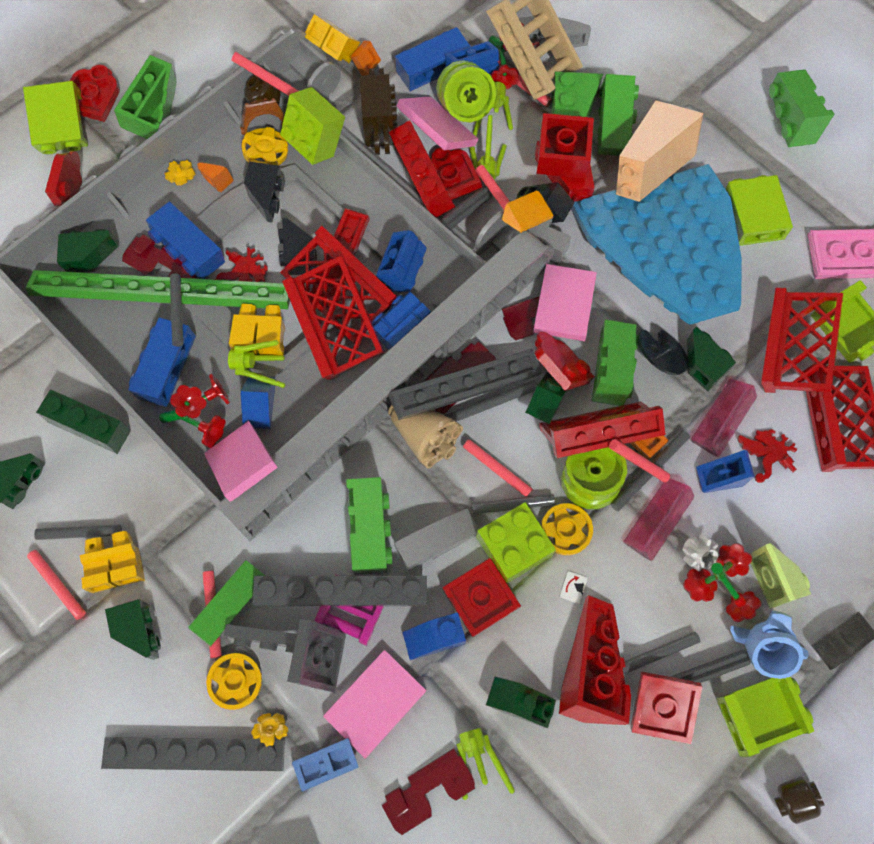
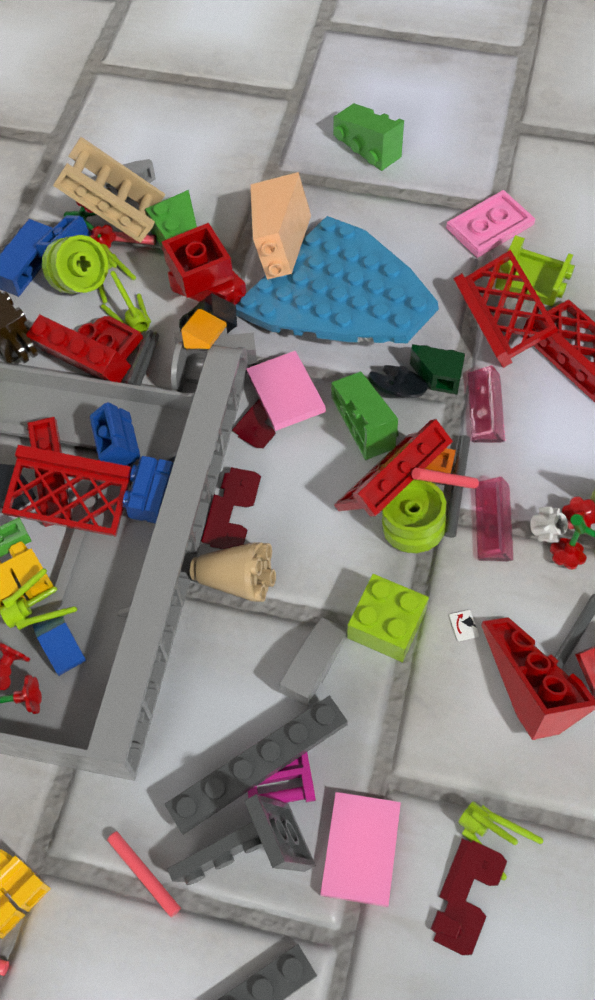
camera: 30 degrees left, 10 degrees down
(133, 627) = (70, 941): dark green slope -> none
(226, 604) = (153, 853): bright green tile -> none
(234, 681) = (210, 923): yellow wheel -> none
(240, 461) = (79, 701): bright pink tile -> none
(269, 728) = (277, 942): yellow plant -> none
(311, 324) = (75, 544): red fence -> none
(325, 764) = (354, 939): medium blue slope -> none
(369, 526) = (243, 686): bright green wedge -> none
(434, 636) = (374, 747): blue slope -> none
(437, 123) = (65, 306): bright pink tile -> none
(464, 384) = (245, 508): dark grey plate -> none
(481, 597) = (390, 686): red plate -> none
(492, 186) = (156, 330): coral bar -> none
(493, 401) = (282, 508): dark grey bar -> none
(498, 468) = (324, 565): coral bar -> none
(510, 504) = (357, 589): dark grey bar -> none
(521, 701) = (491, 752): dark green slope -> none
(546, 399) = (327, 474): dark green slope -> none
(562, 362) = (317, 439): red plate -> none
(568, 528) = (423, 577): yellow wheel -> none
(616, 113) = (215, 204): bright green wedge -> none
(726, 472) = (522, 446): blue slope -> none
(759, 209) = (396, 226): lime panel -> none
(773, 450) = (546, 408): red piece -> none

